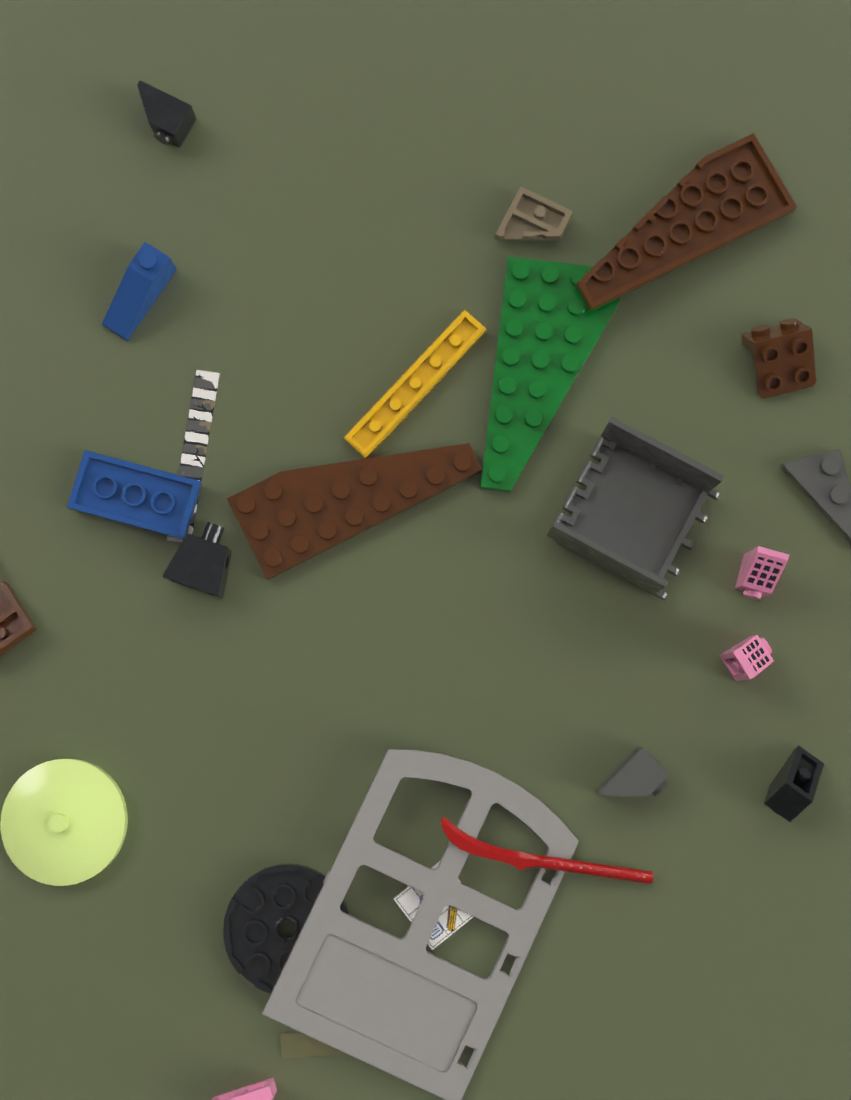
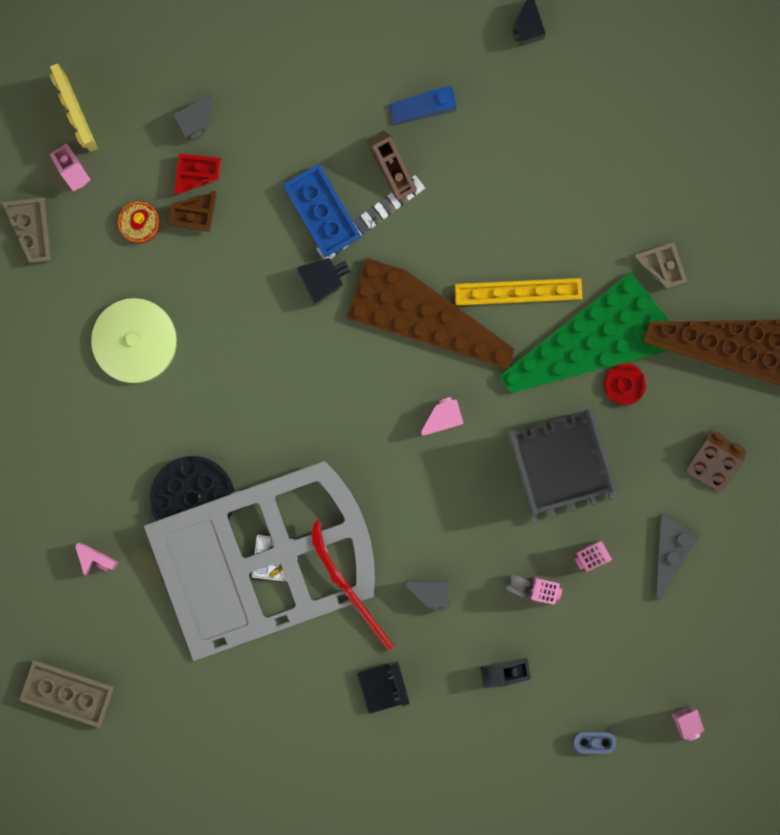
camera: 45 degrees right, 5 degrees up
(160, 380) = (391, 164): none -> reddish brown slope
(465, 581) = (443, 417): none -> bright pink slope
(605, 376) = (625, 384): none -> red tile
(686, 927) = (383, 687): none -> black bracket
(715, 679) = (518, 585): none -> light grey wheel

